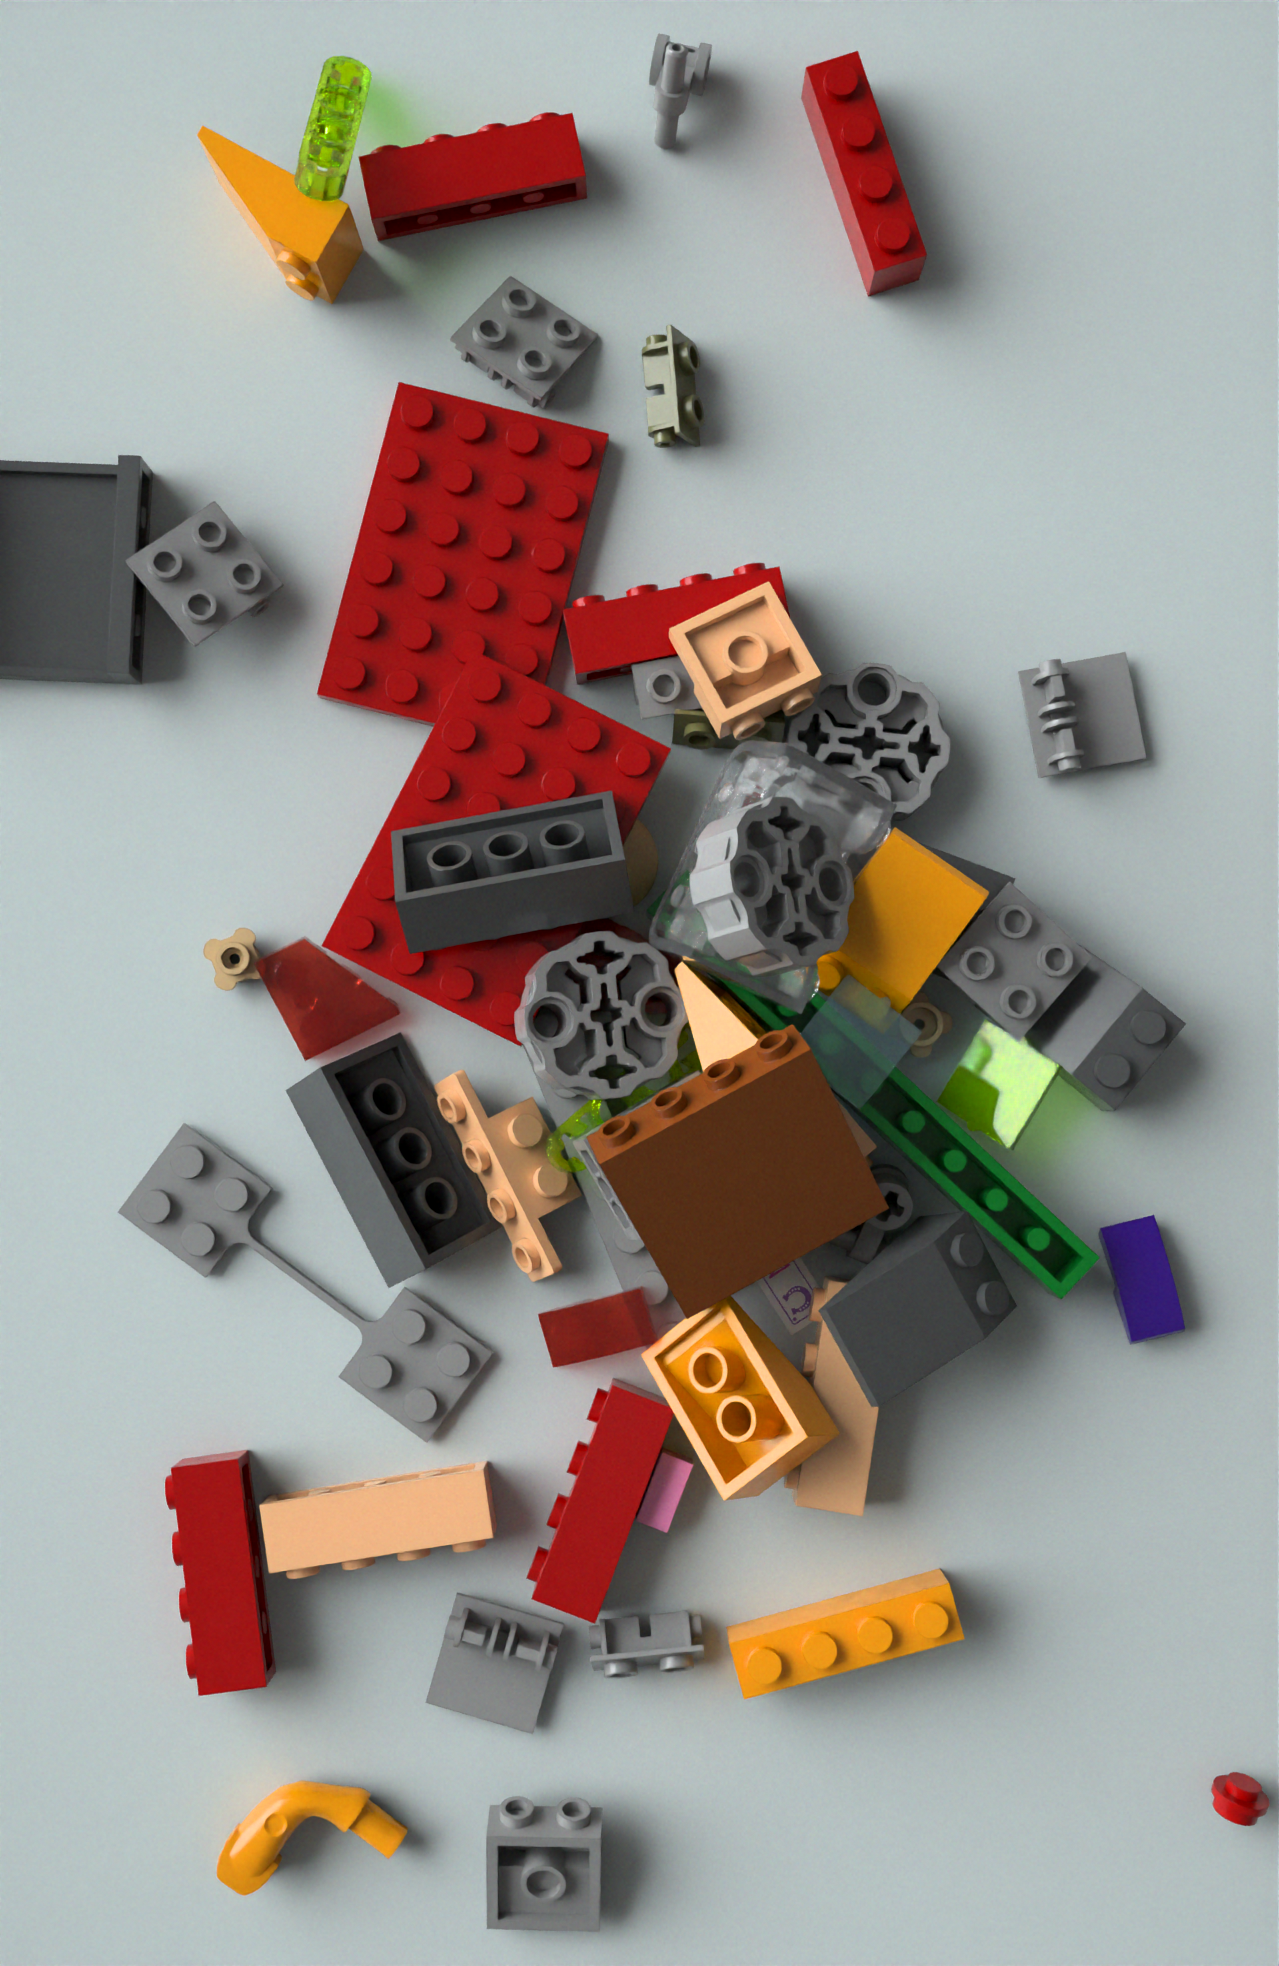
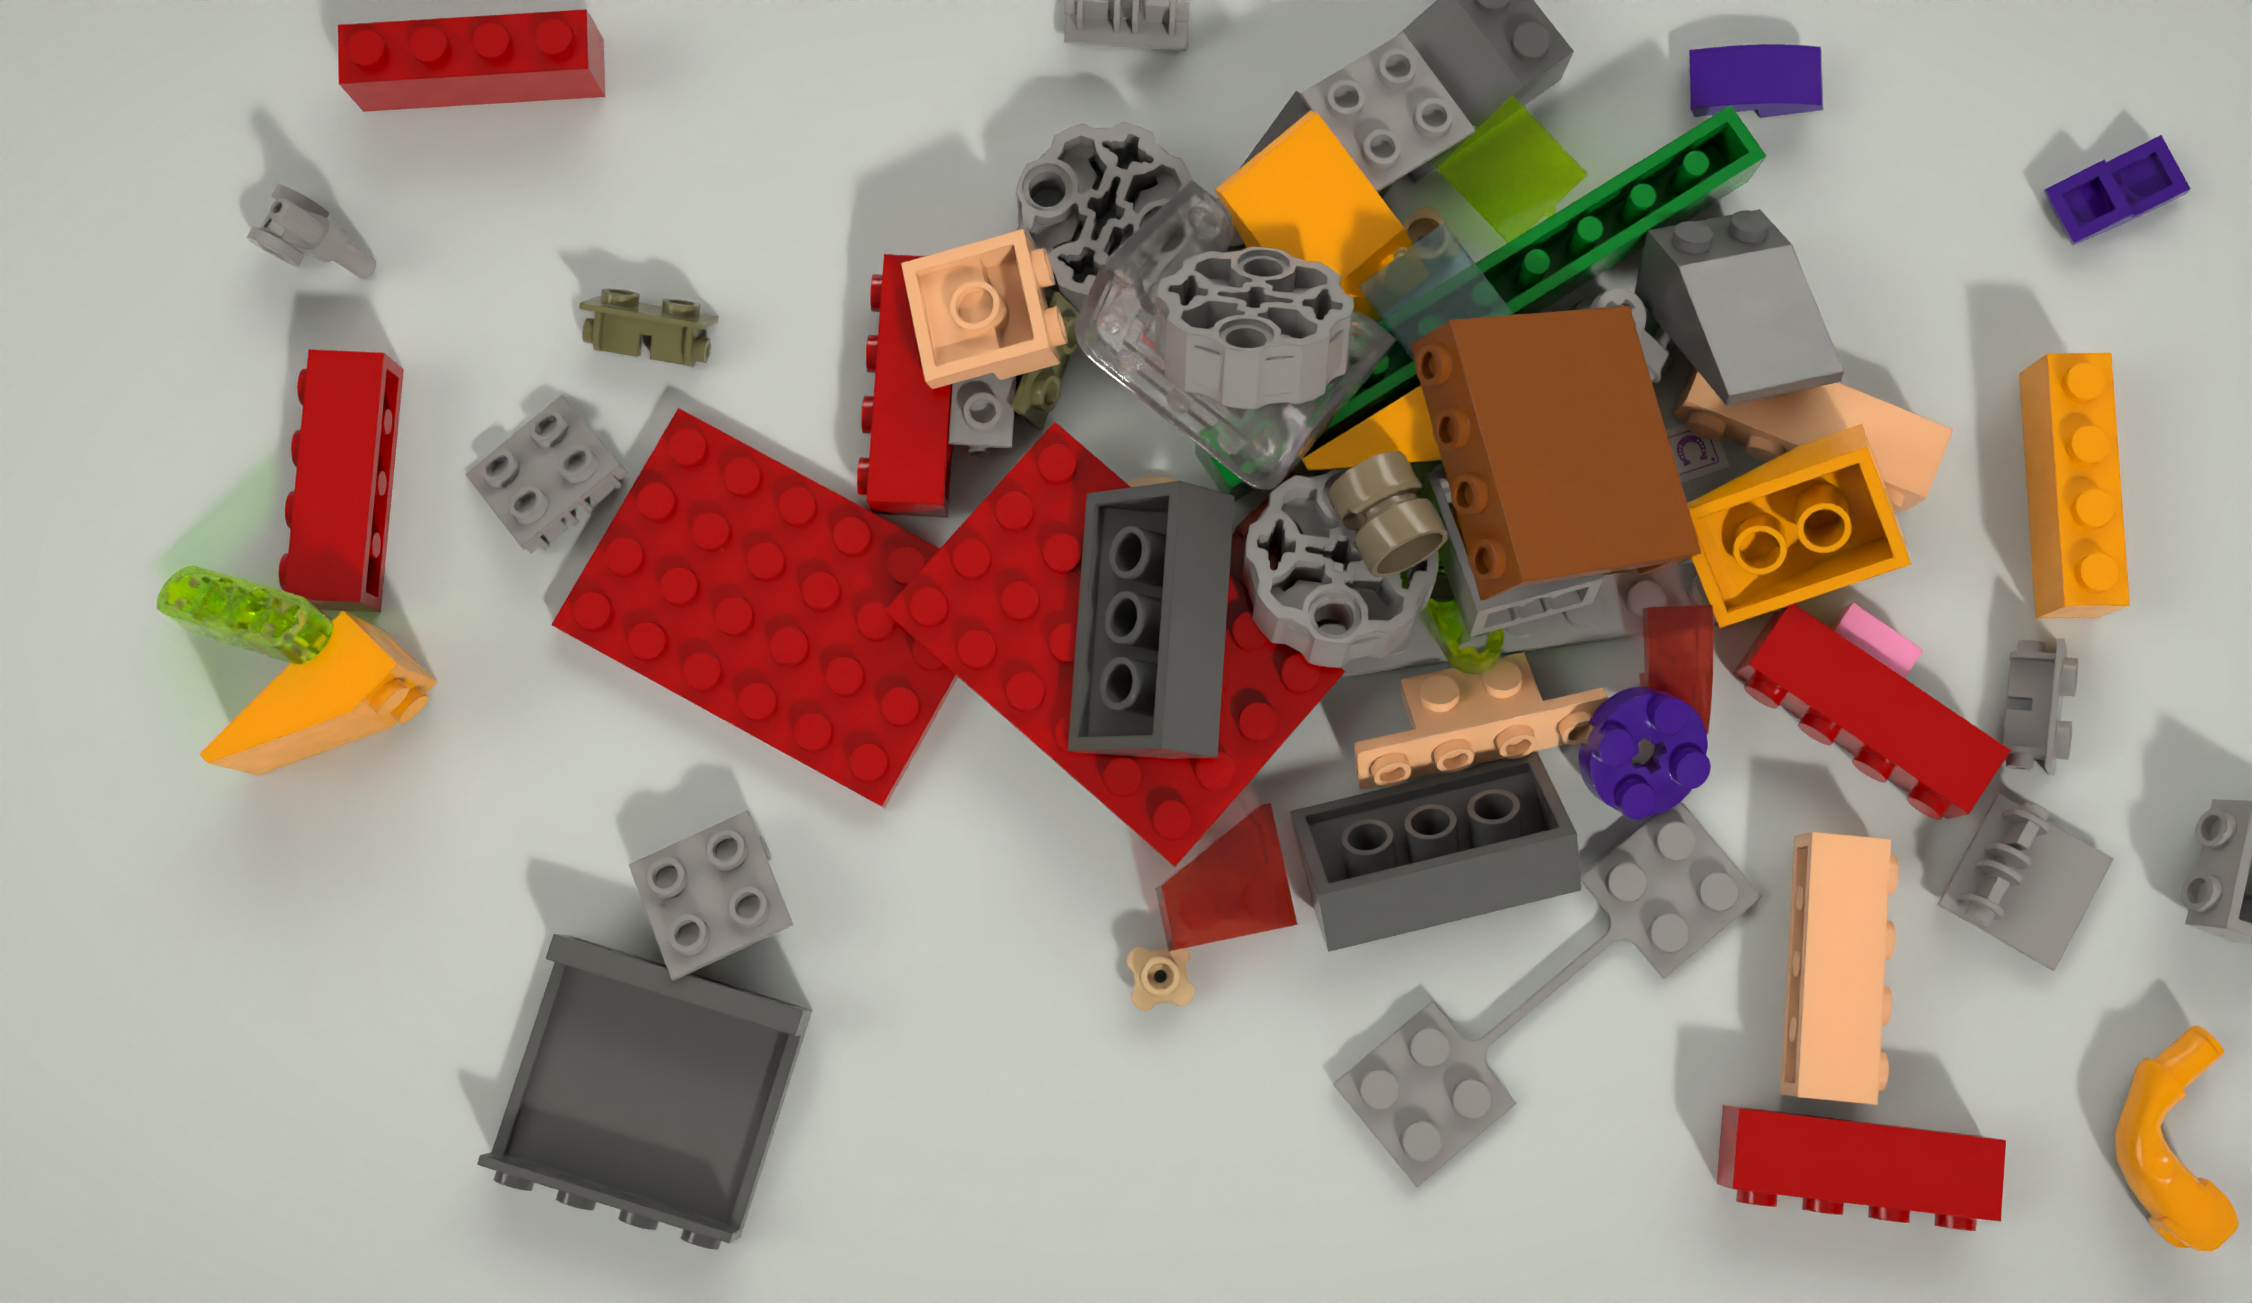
camera: 75 degrees left, 5 degrees down
(503, 1338) = (1672, 770): none -> dark purple plate
(651, 1036) = (1391, 520): none -> dark tan wheel
(1125, 1619) = (2117, 190): none -> dark purple slope

